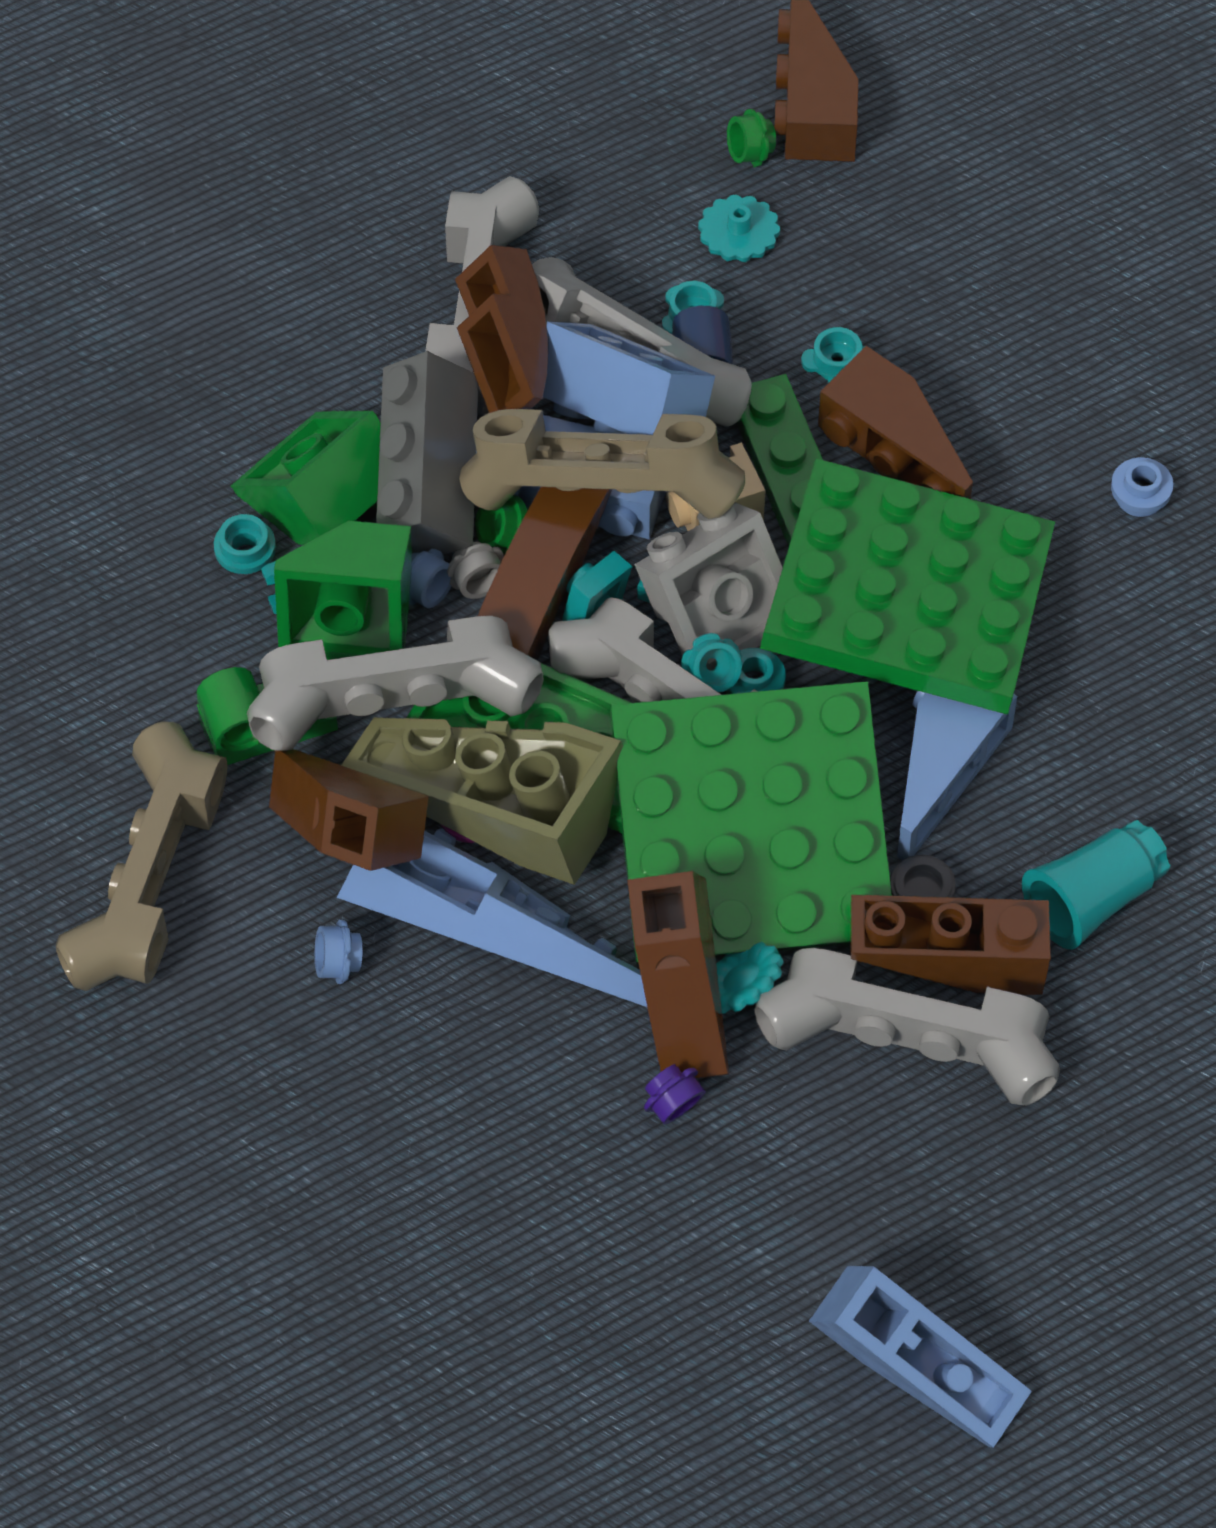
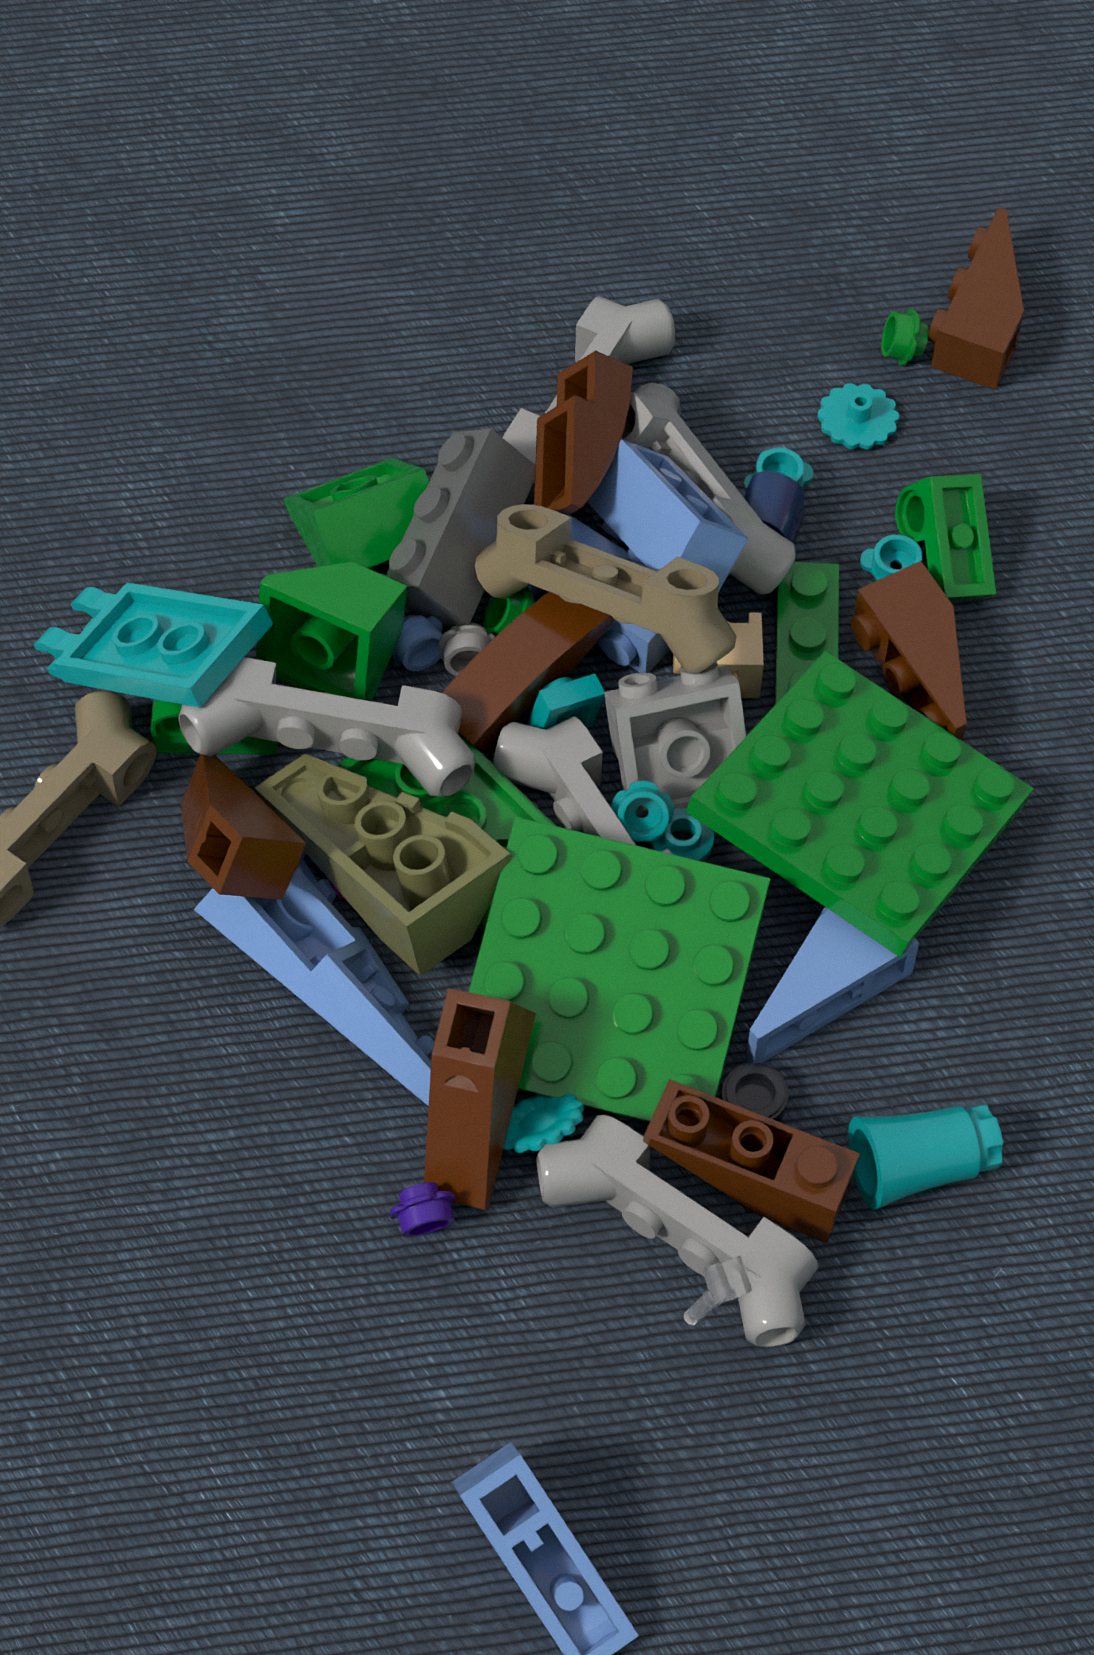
camera: 20 degrees right, 0 degrees up
(188, 661) = (155, 642): none -> teal tile
(240, 531) = (267, 542): teal plate -> none
(337, 952) = (176, 961): medium blue plate -> none
(878, 300) = (953, 524): none -> green plate
(978, 1056) = (724, 1283): none -> clear hand

